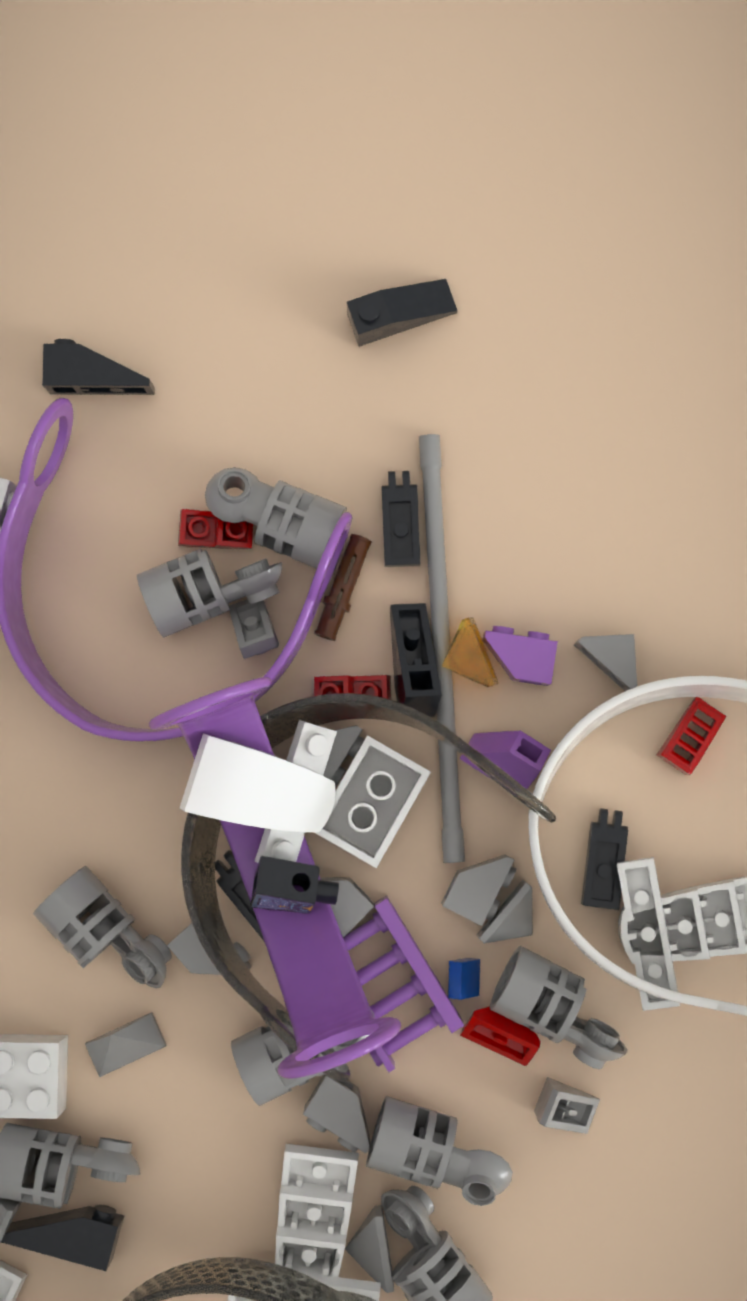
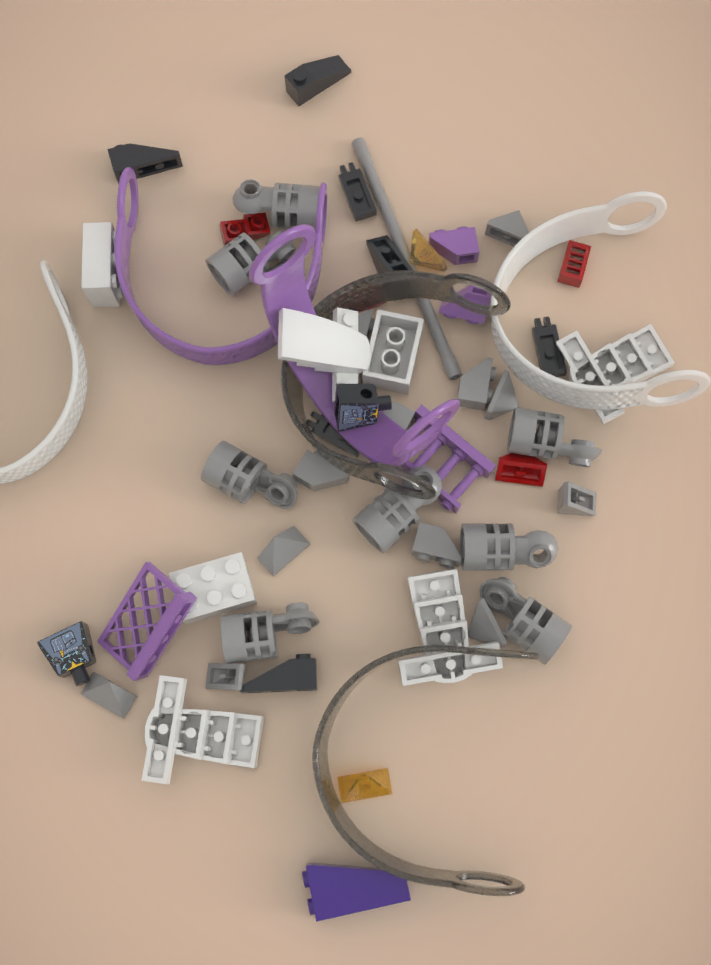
camera: 20 degrees left, 10 degrees down
(356, 548) = (335, 216): reddish brown pin -> none
(464, 978) = (485, 441): blue tile -> none

